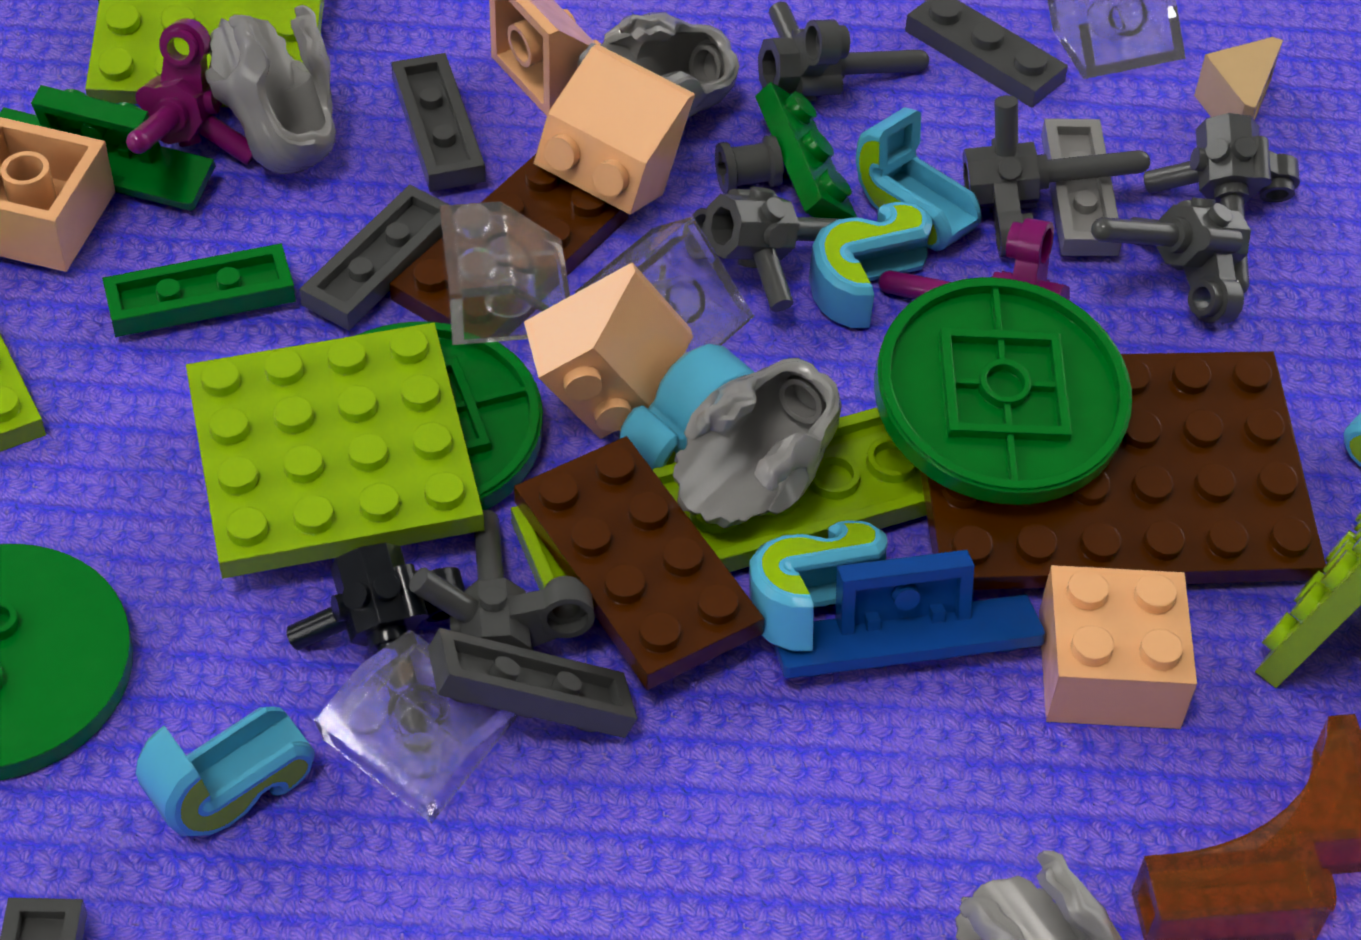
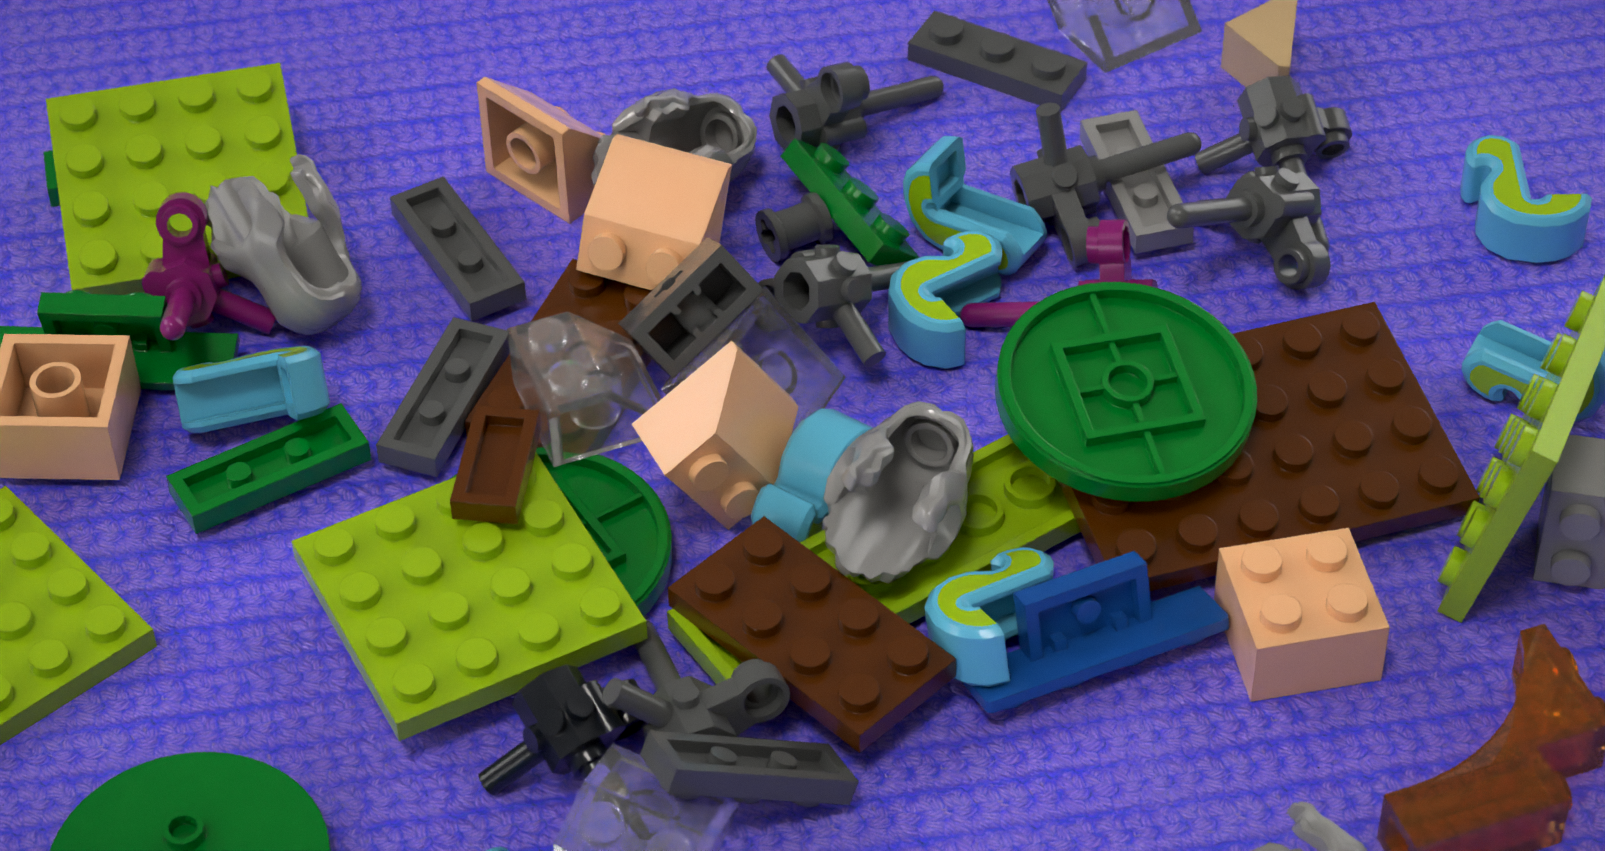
camera: 10 degrees left, 5 degrees down
(204, 213) = (251, 389): none -> medium azure animal
(390, 333) = (496, 464): none -> reddish brown tile
(620, 221) = (691, 306): none -> dark grey brick

